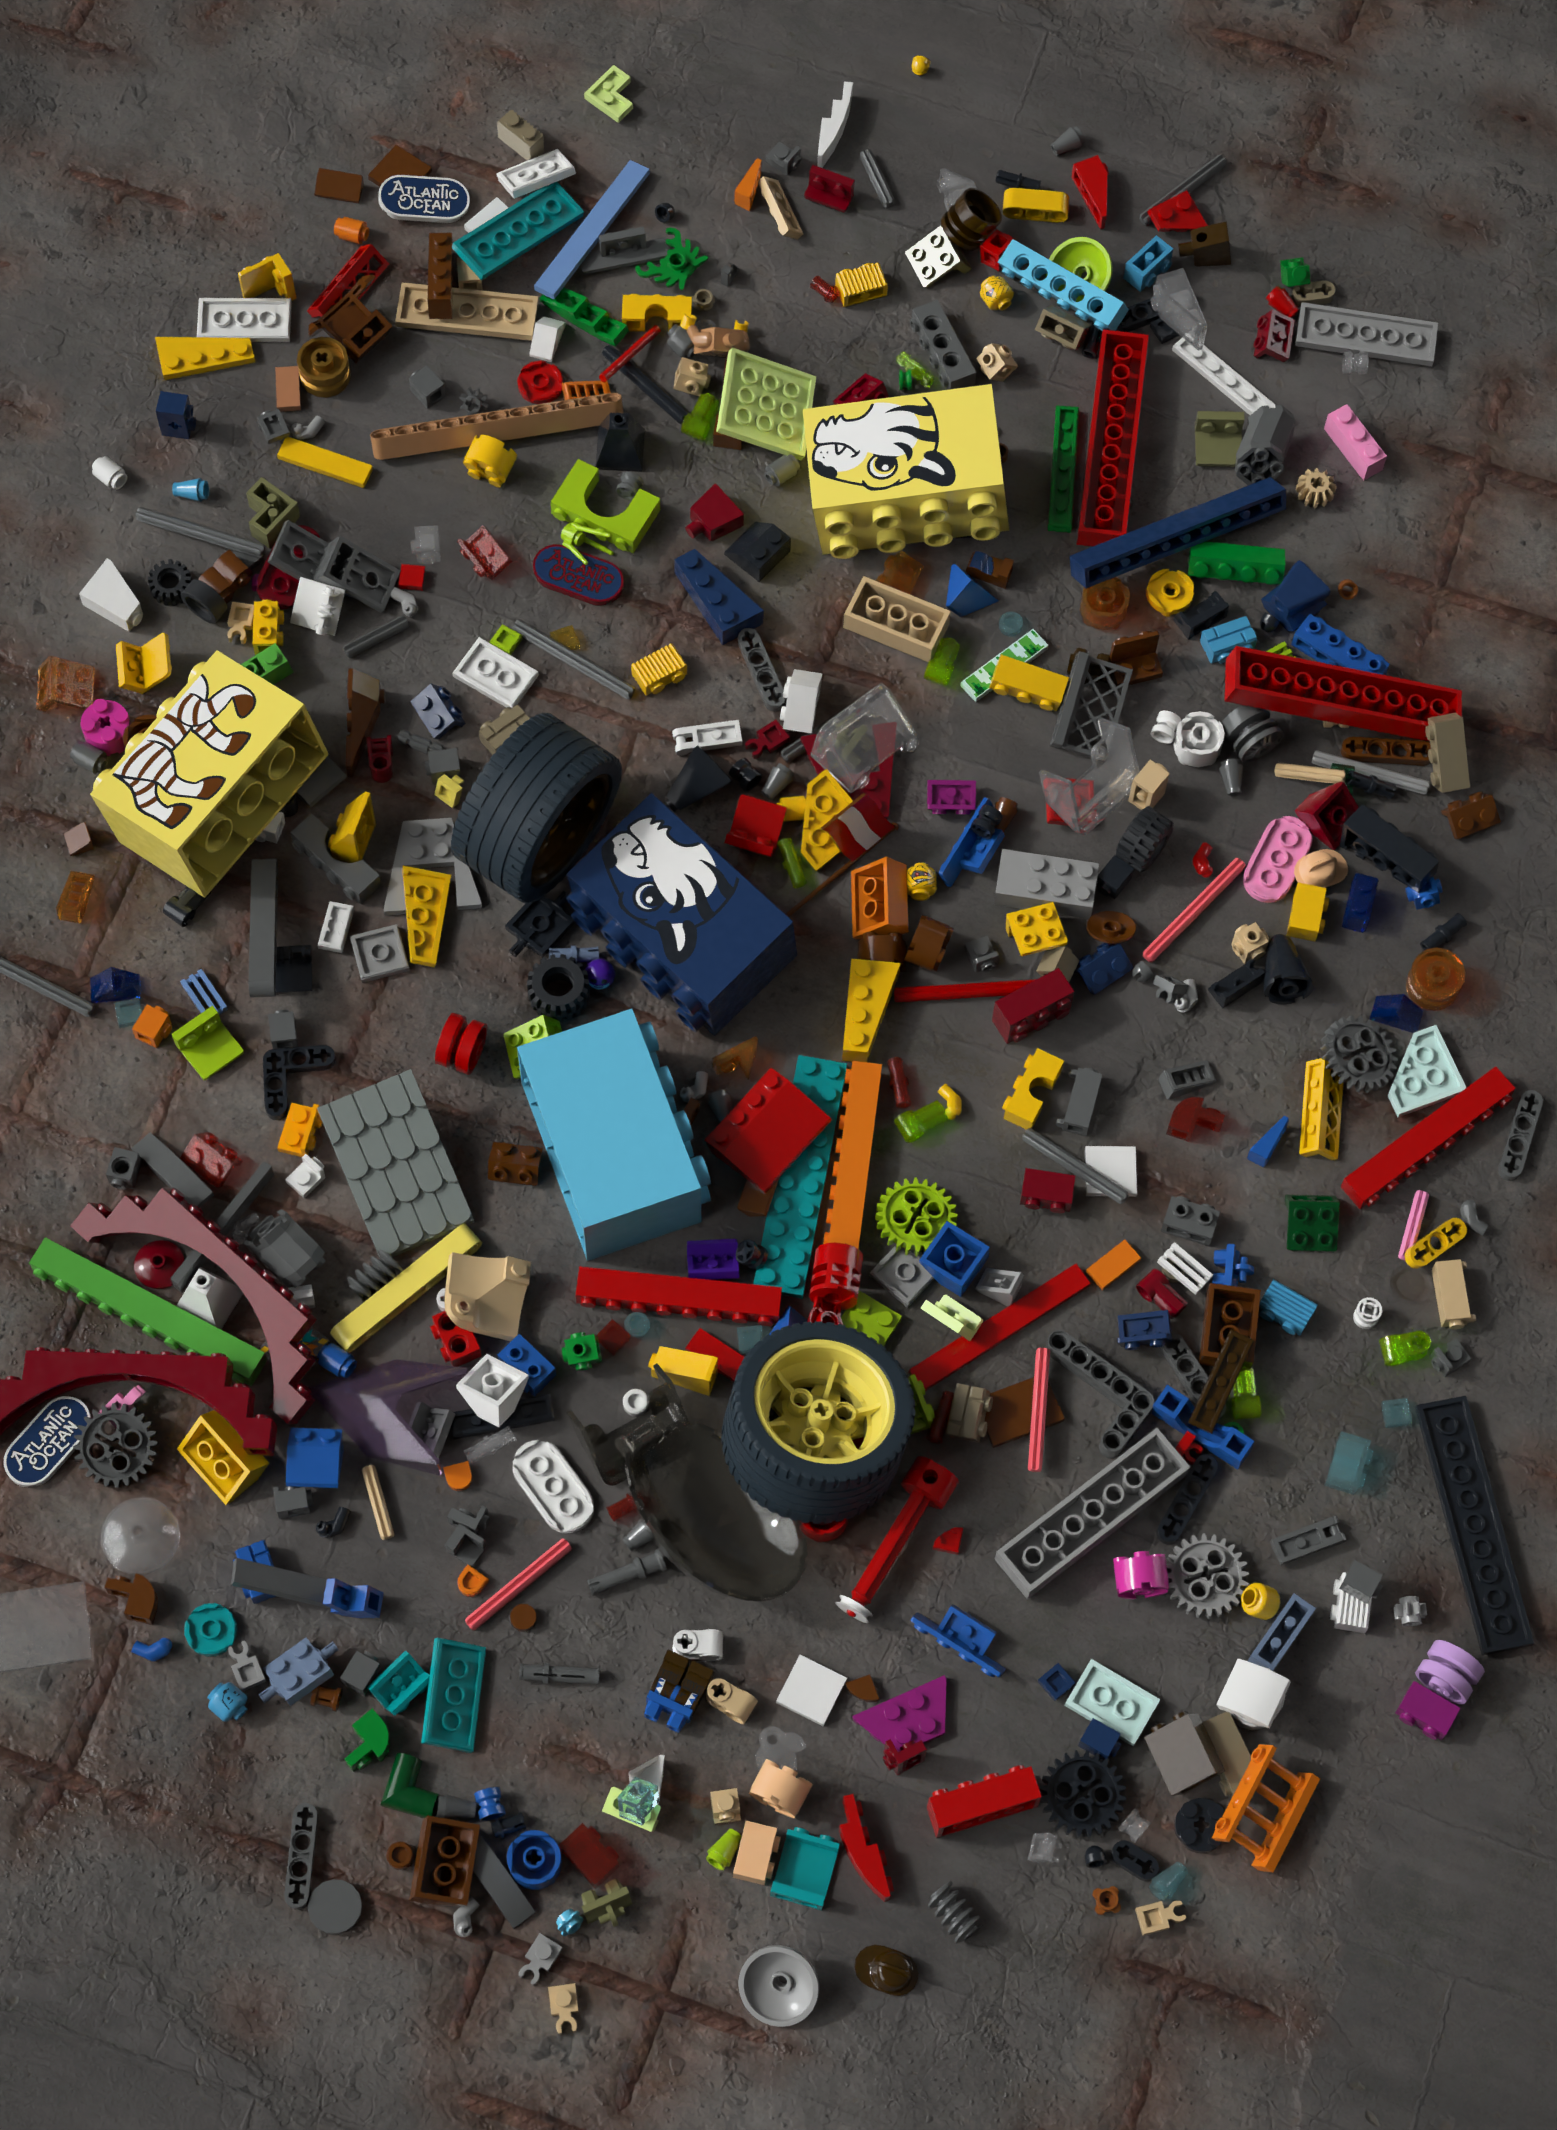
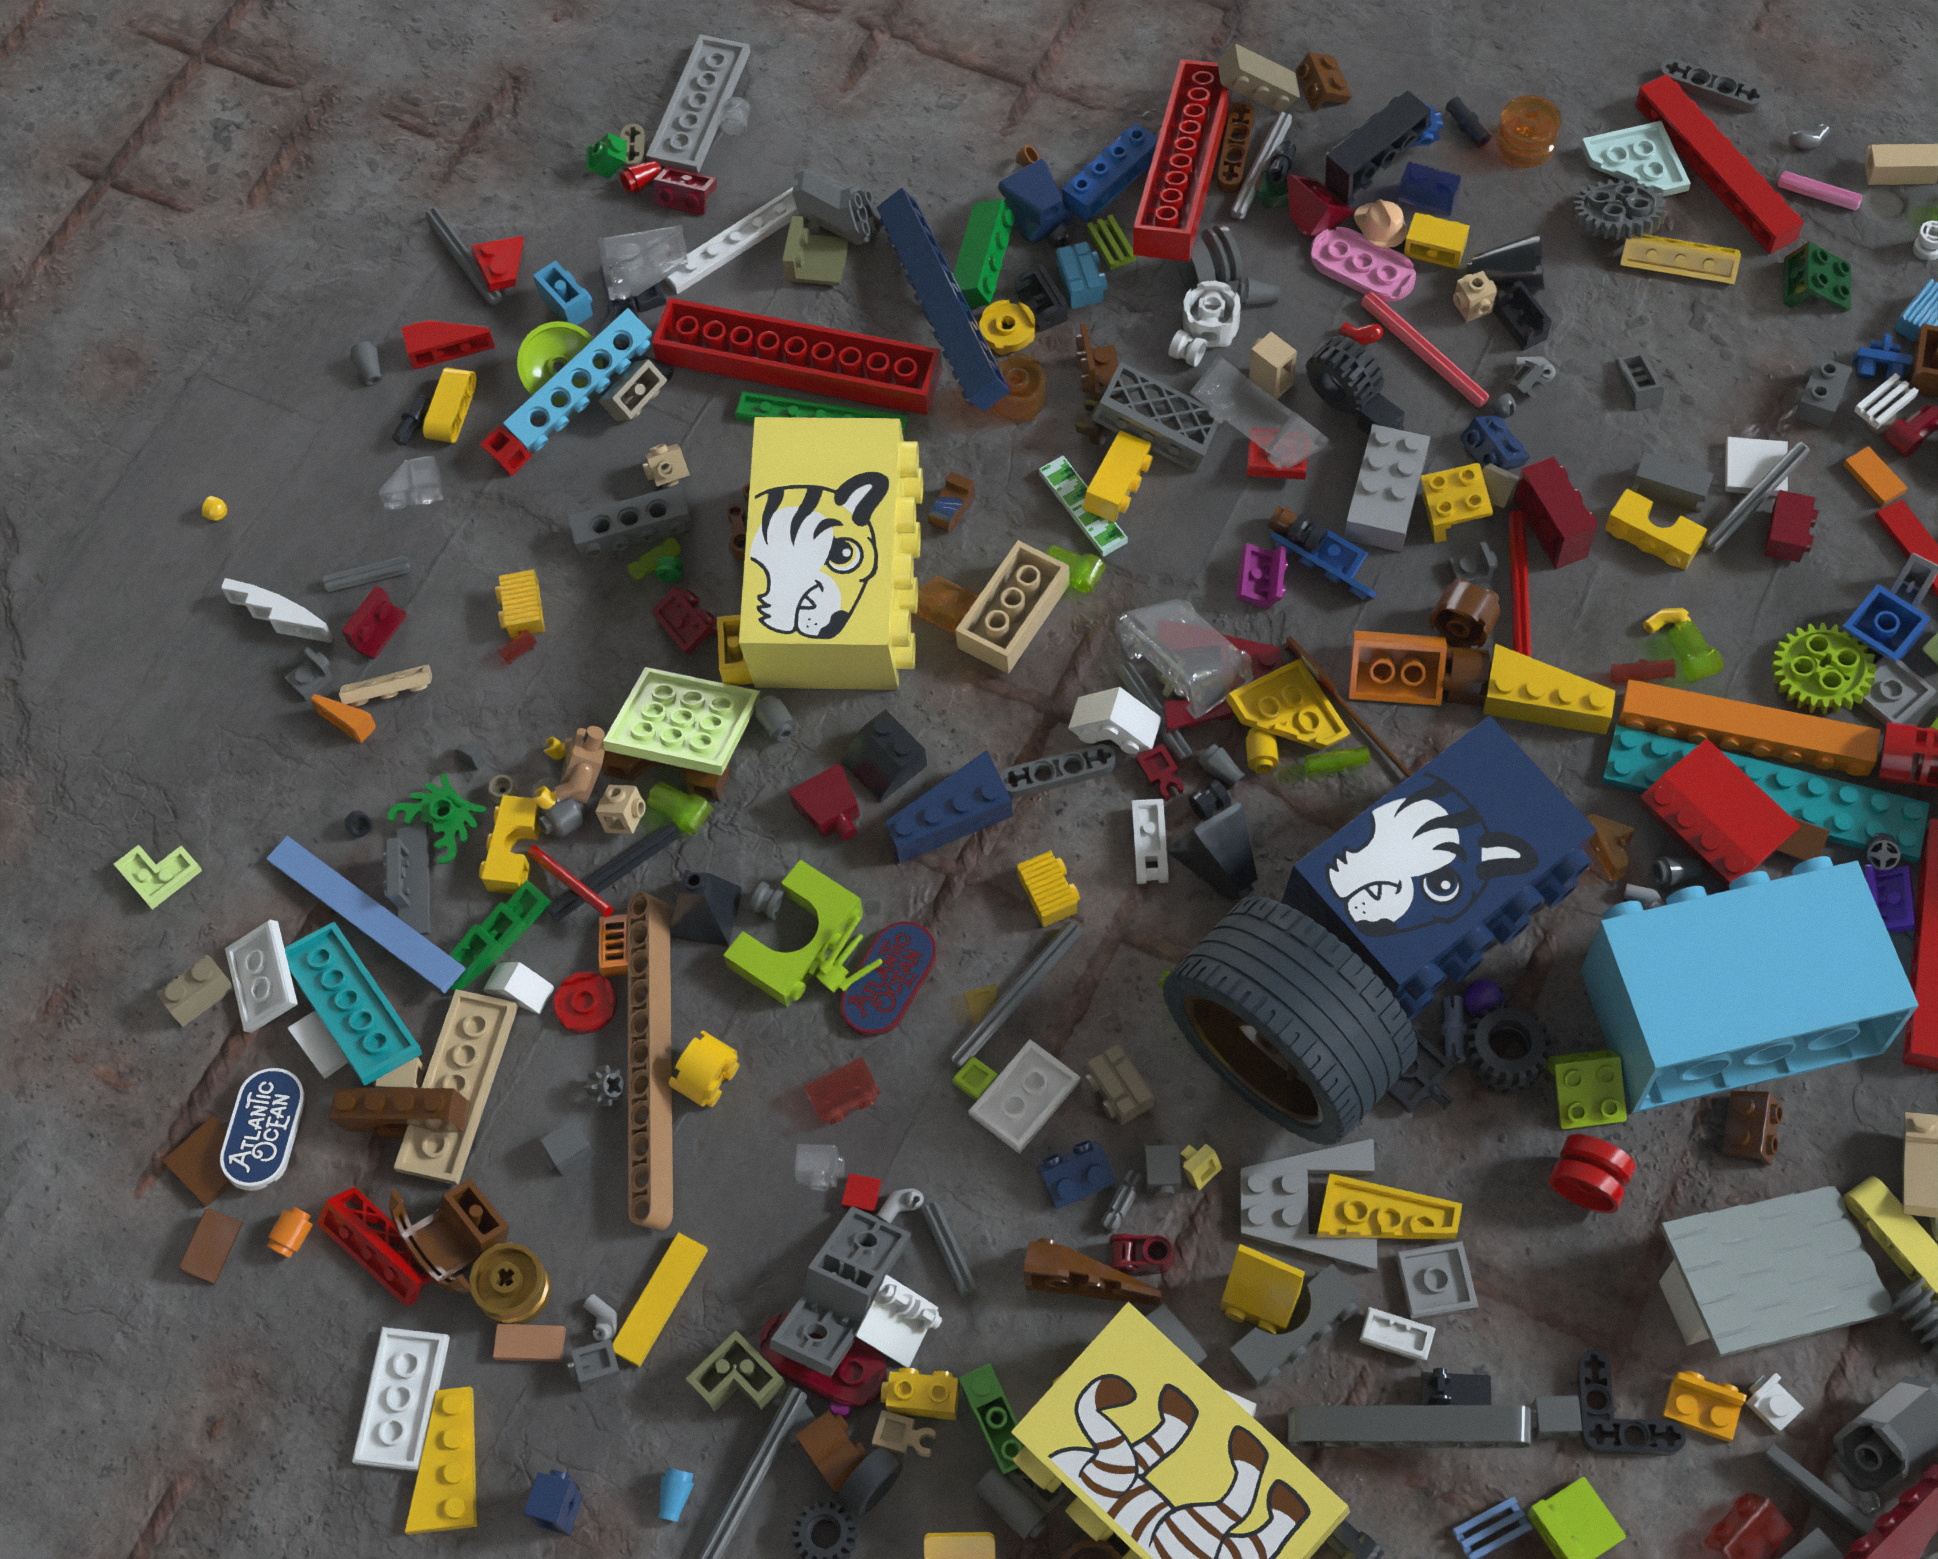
camera: 75 degrees left, 5 degrees down
(266, 275) = (350, 1330): yellow bracket -> none
(756, 825) = (1290, 792): red bracket -> none
(921, 881) = (1373, 617): yellow head -> none
(936, 257) = (500, 519): bracket -> none
(965, 593) = (980, 532): blue slope -> none
(971, 219) = (464, 464): dark brown wheel -> none
(996, 293) = (567, 456): yellow head -> none
(1010, 624) = (1026, 494): clear light blue tile -> none
(1111, 927) = (1448, 427): reddish brown dish -> none
(1191, 1113) = (1691, 380): clear red brick -> none
(1208, 246) = (552, 230): dark brown torso -> none
(1264, 1148) = (1723, 306): blue slope -> none
(1309, 773) = (1262, 216): tan axle -> none
(1316, 488) = (893, 170): tan gear -> none
(1355, 442) = (840, 126): bright pink brick -> none
(1397, 1012) = (1561, 178): clear blue slope -> none
(1425, 1243) = (1845, 170): yellow beam -> none

